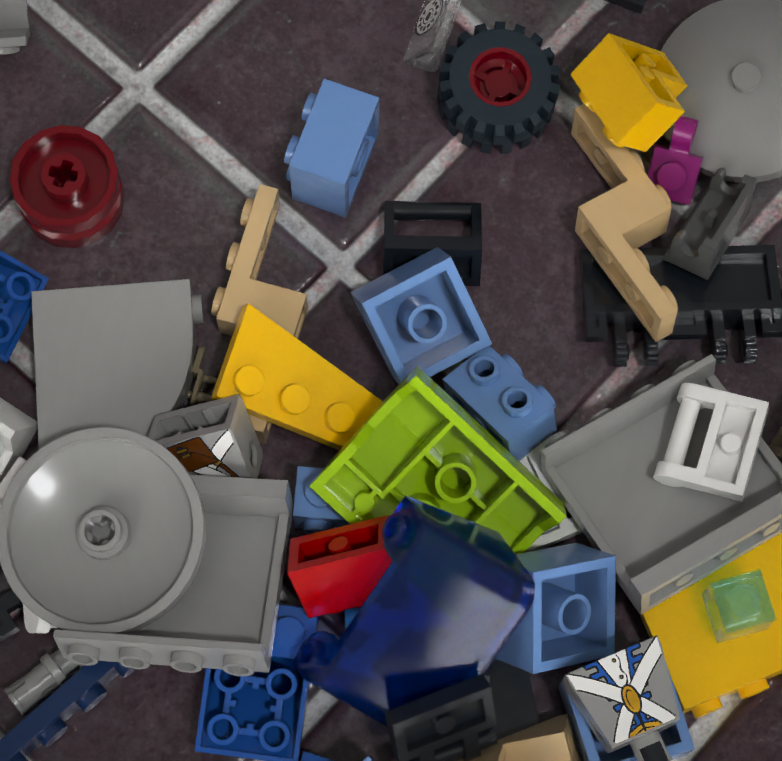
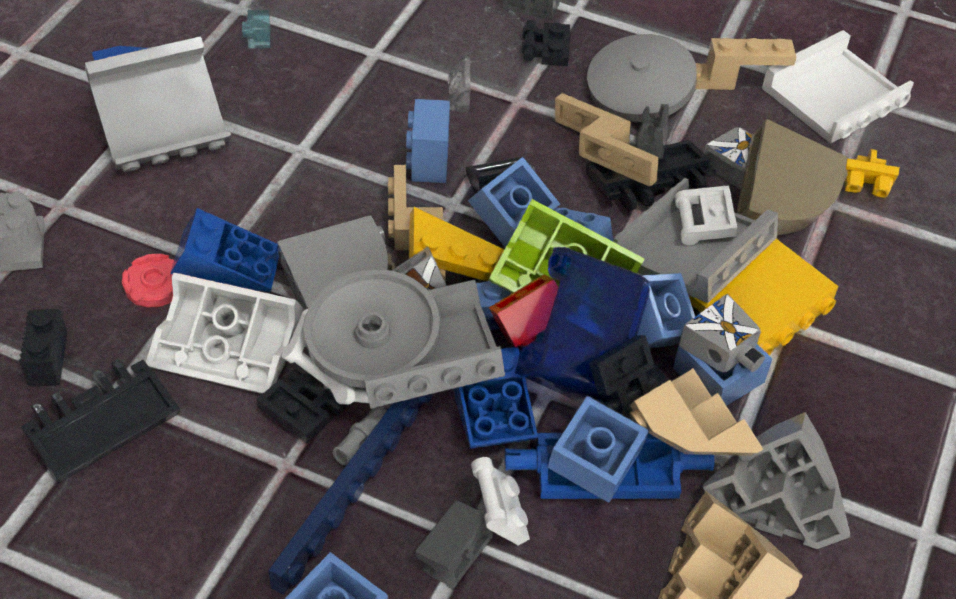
camera: 20 degrees left, 25 degrees down
(67, 186) = (279, 193): dark red wheel -> none
(498, 87) = (508, 102): black wheel -> none
(630, 91) = (583, 77): yellow brick -> none
(675, 166) = (620, 108): magenta plate -> none
(738, 606) = (761, 282): clear light blue brick -> none

